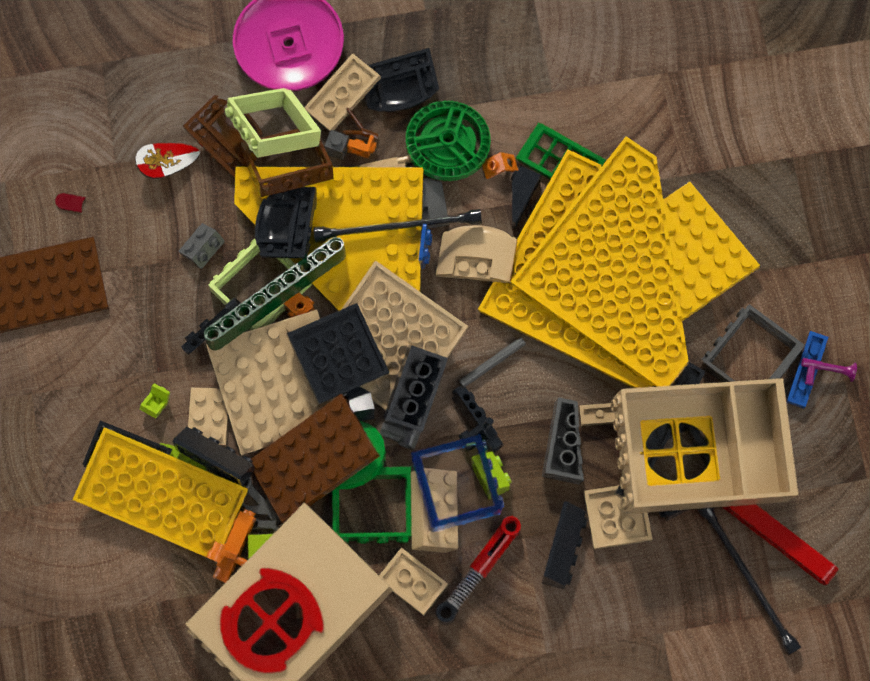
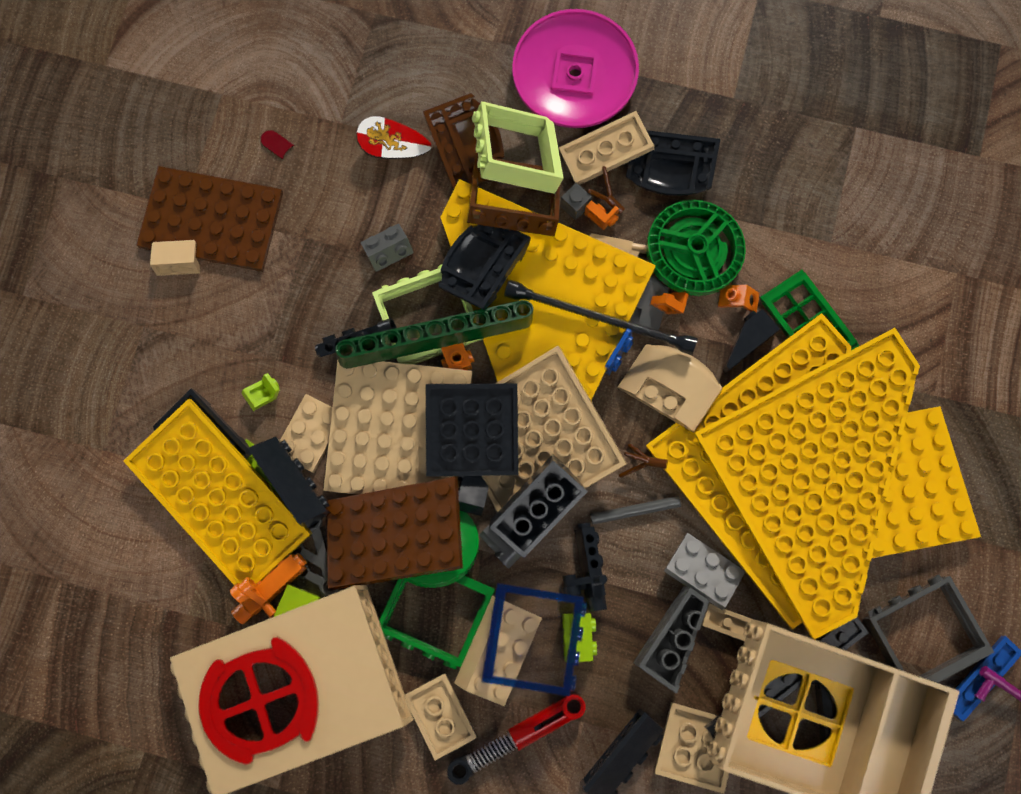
camera: 25 degrees right, 5 degrees up
(33, 327) = (174, 258): none -> tan panel
(447, 192) = (670, 303): none -> orange bracket
(484, 319) = (648, 461): none -> reddish brown plant
(565, 382) = (705, 571): none -> light grey plate

